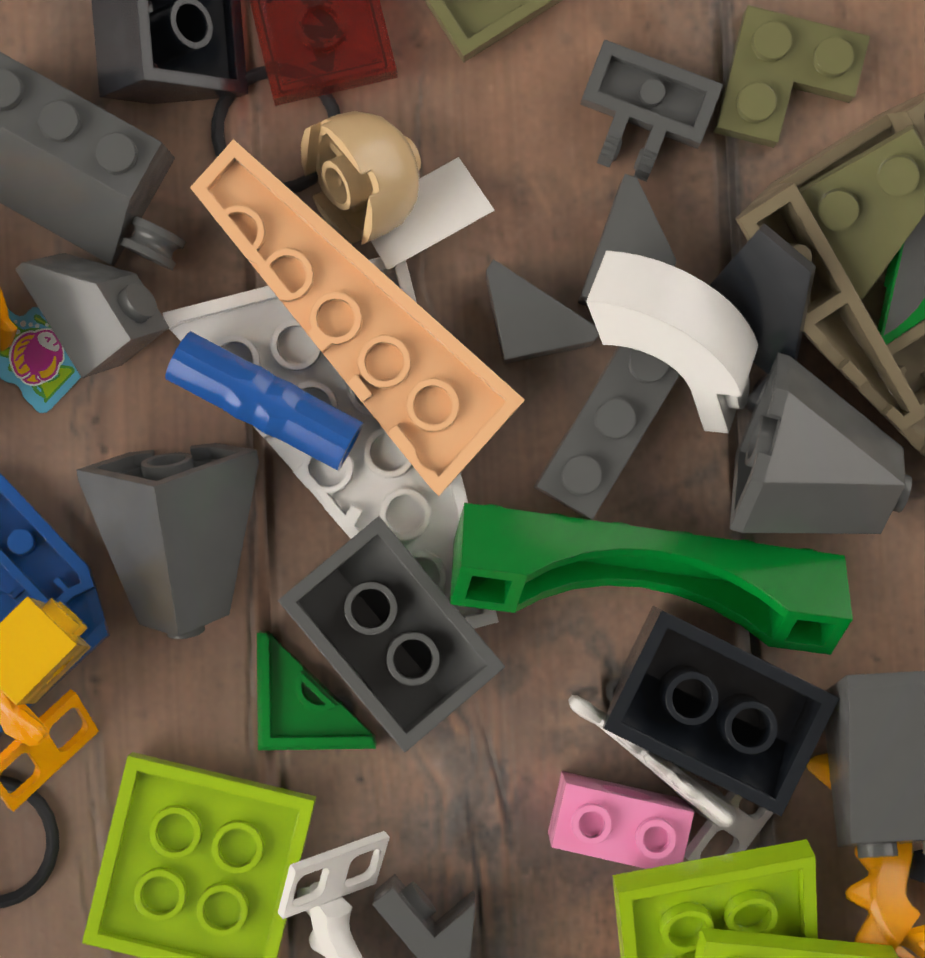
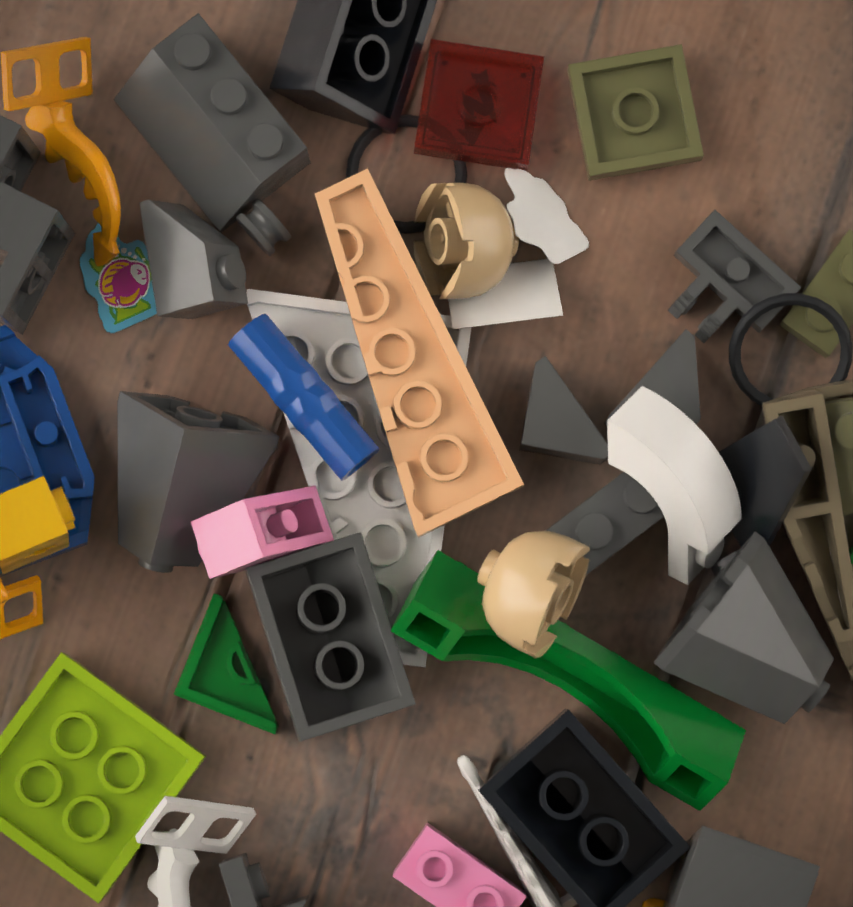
camera: 25 degrees right, 5 degrees down
(277, 555) = (261, 530): none -> bright pink brick
(432, 118) = (542, 217): none -> white sticker
(577, 505) = (532, 587): none -> tan cylinder
(704, 109) = (778, 301): none -> black tyre

